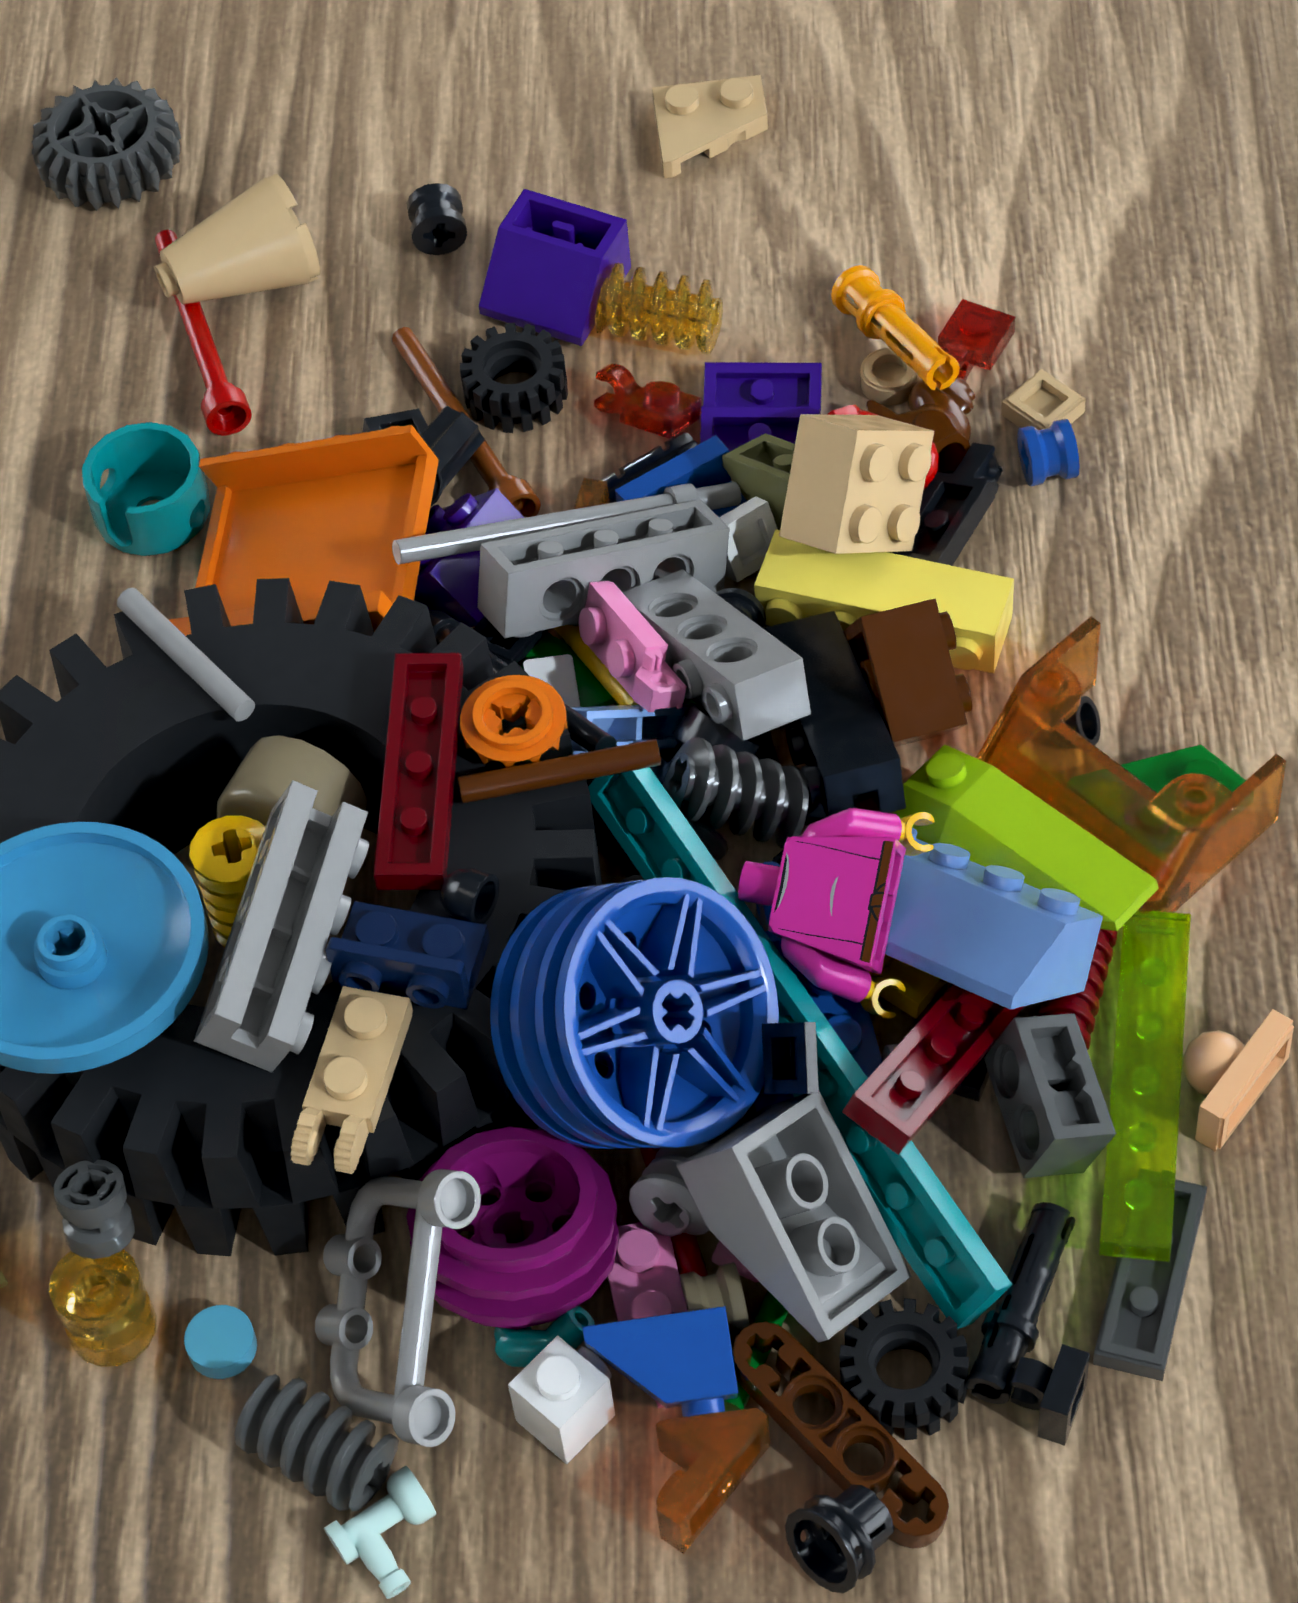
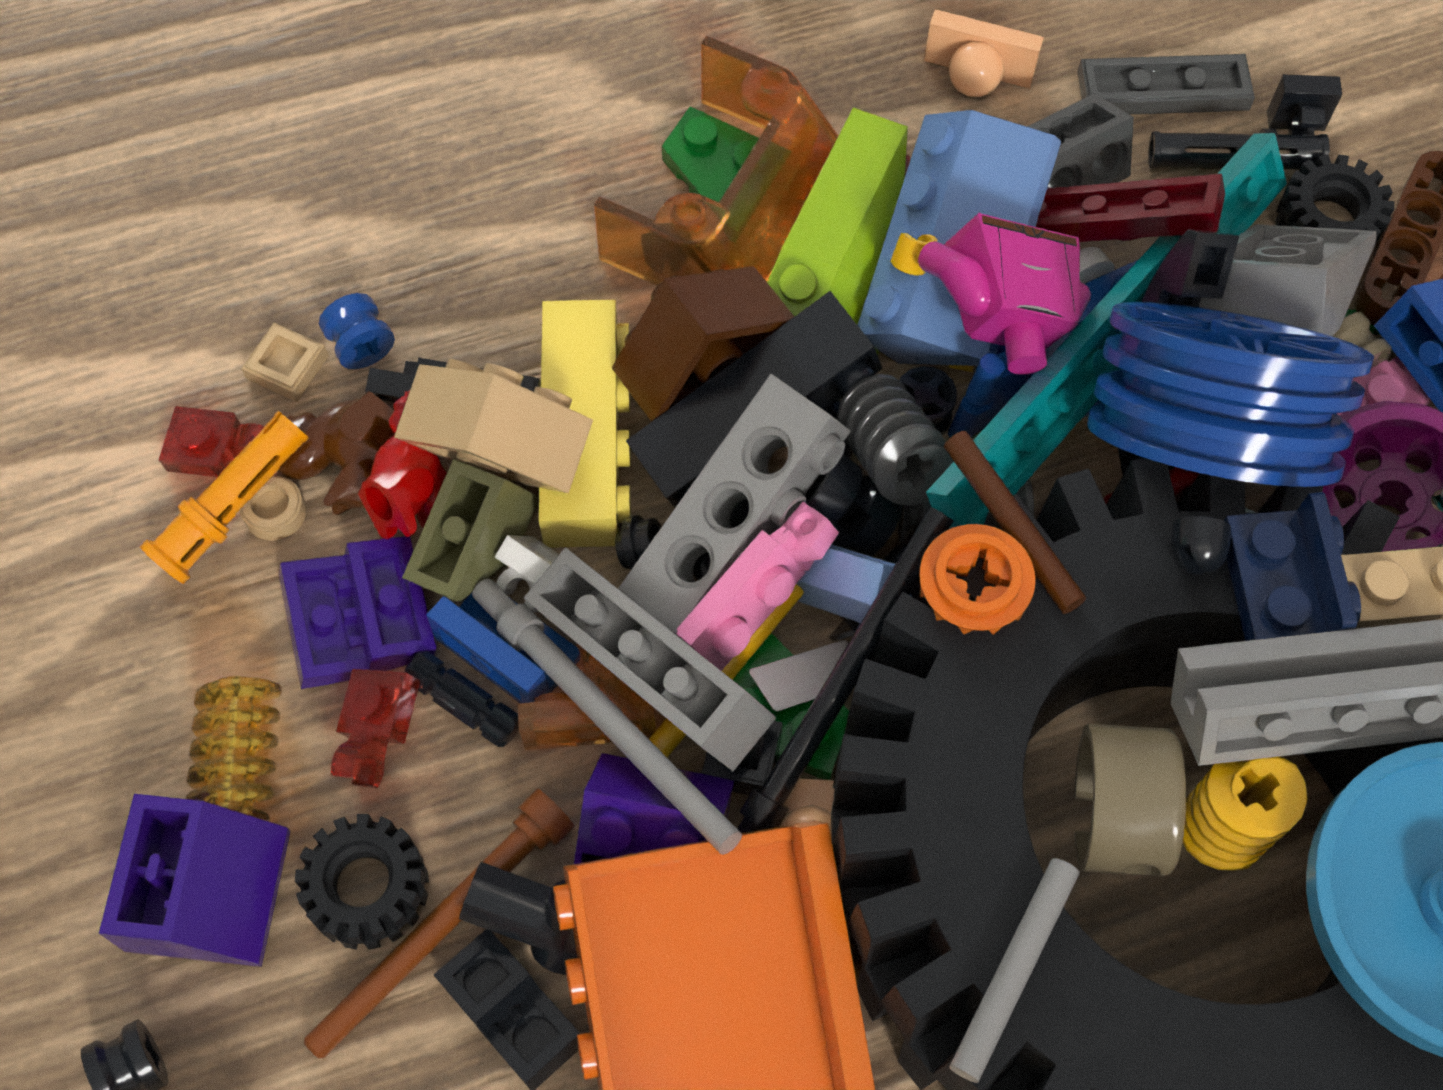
camera: 115 degrees left, 10 degrees up
(419, 772) = (1075, 643): dark red plate -> none
(1146, 1087) = (1129, 82): clear neon green tile -> none

